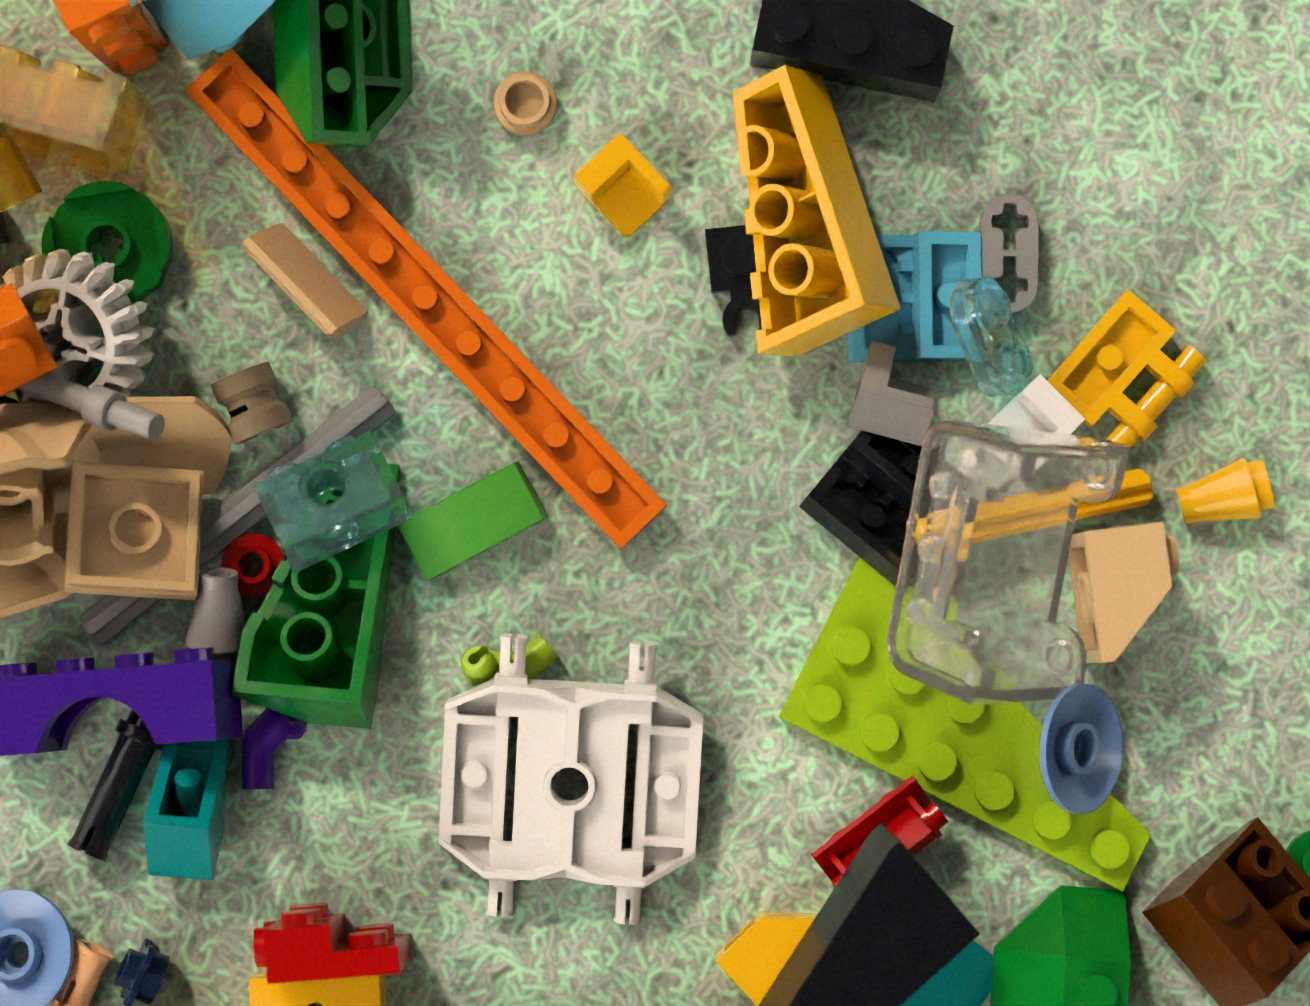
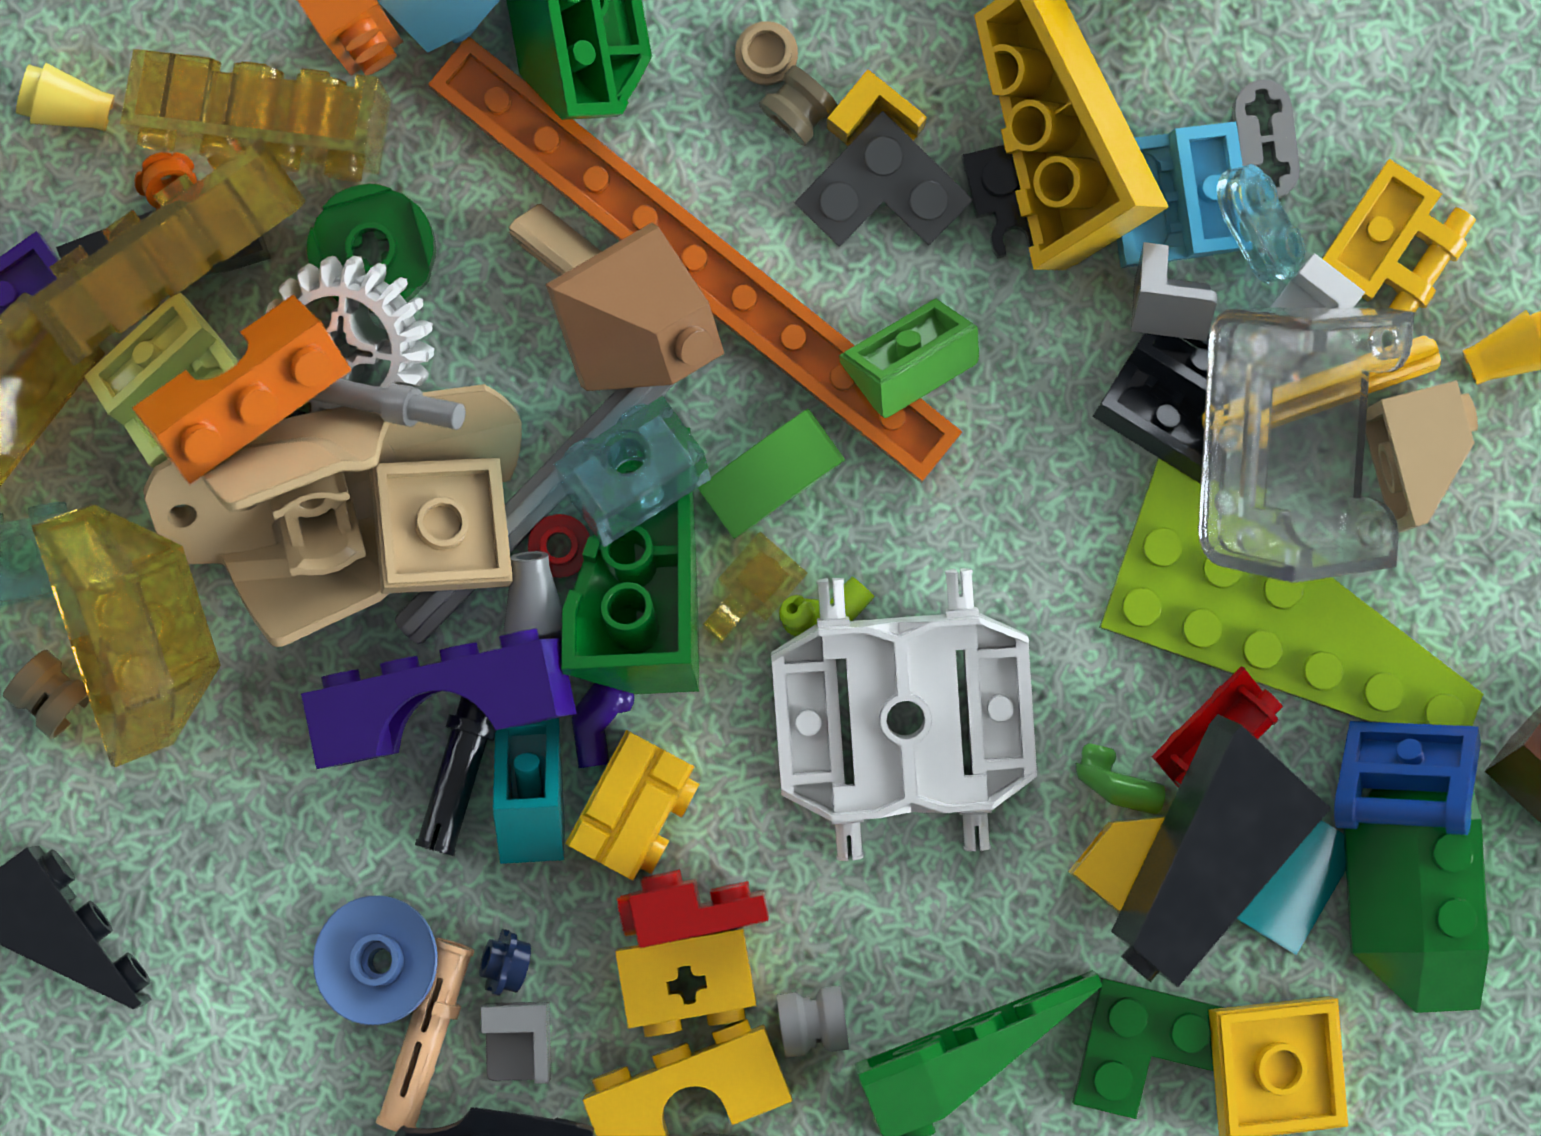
camera: 10 degrees left, 0 degrees up
(251, 402) = (537, 384): dark tan wheel -> none
(288, 834) = (632, 805): none -> yellow brick
(353, 347) = (634, 316): none -> medium nougat slope
(445, 627) = (757, 583): none -> clear yellow plate
(548, 159) = (798, 105): none -> dark tan wheel
(626, 233) = (889, 169): none -> dark grey plate
(627, 424) = (912, 357): none -> bright green slope
(772, 879) = (1117, 788): none -> bright green arm
(1068, 892) = (1408, 759): none -> blue plate
(1081, 748) = (1404, 616): medium blue dish -> none

